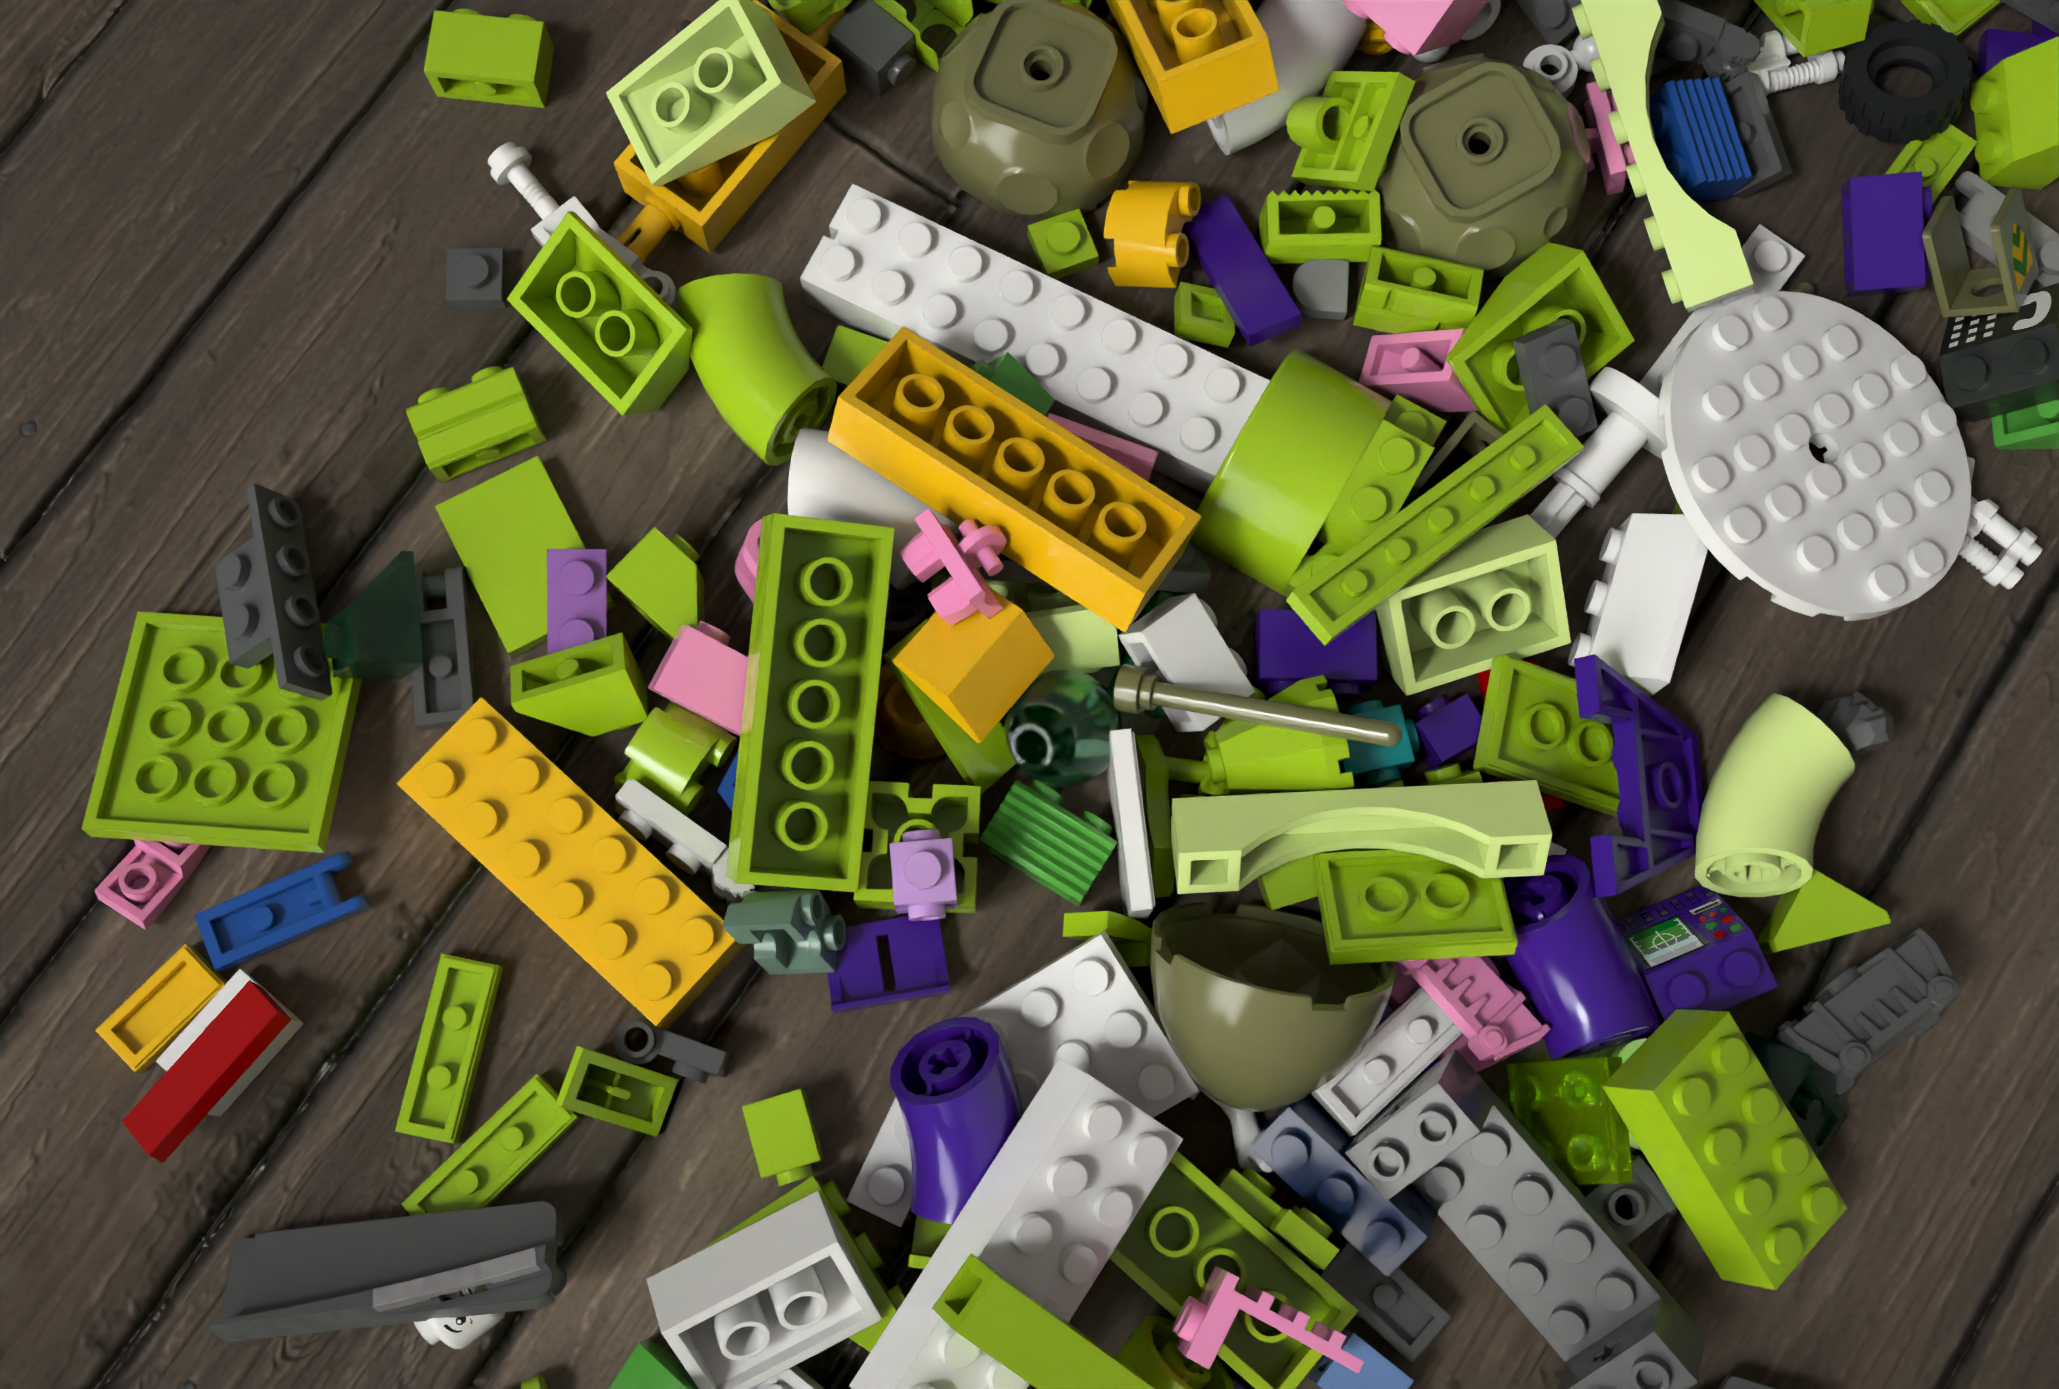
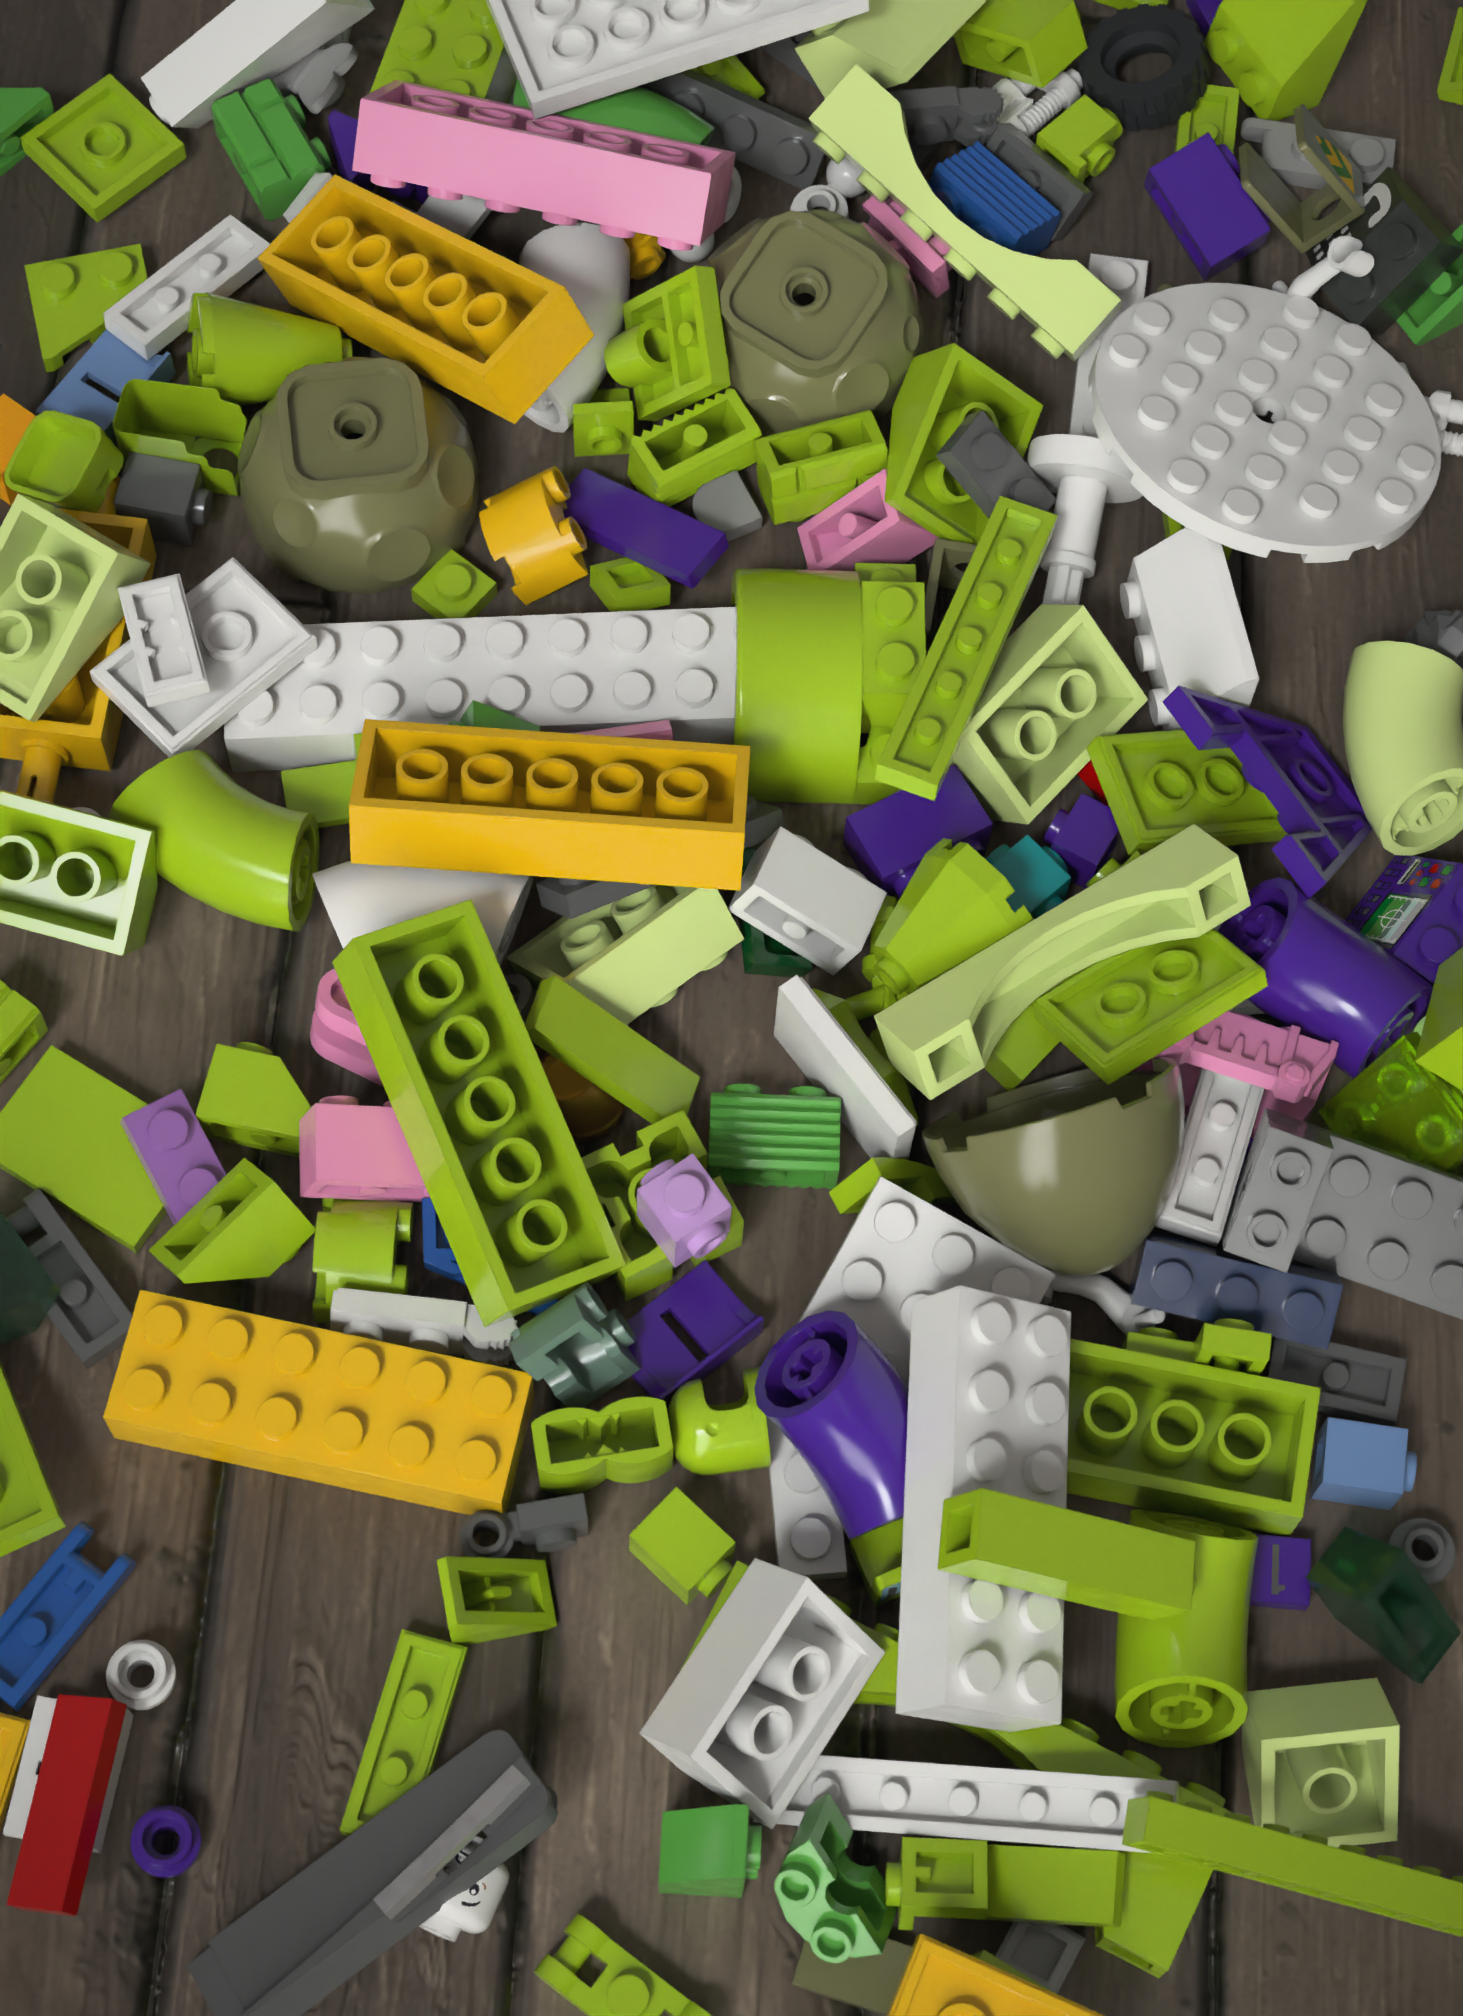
camera: 30 degrees left, 10 degrees down
(253, 1136) = (147, 1830): none -> dark purple plate
(308, 993) = (130, 1657): none -> white plate
(449, 1049) = (298, 1657): lime tile -> none
(751, 1016) = (619, 1443): none -> lime brick
(786, 172) = (163, 640): none -> white plate
(817, 203) = (244, 647): none -> white tile
(859, 1056) = (722, 1436): none -> lime helmet
(940, 548) = (570, 921): bright pink hips -> none
(976, 664) = (610, 987): yellow slope -> none
(1062, 728) = (726, 1020): clear green brick -> none
(1141, 691) = (784, 941): olive piece -> none
(1206, 1321) = (1203, 1425): bright pink plate -> none
(1262, 169) = (603, 424): none -> lime bracket
(1811, 119) = (1082, 138): none -> lime brick
(1971, 344) = (1343, 256): none -> white piece

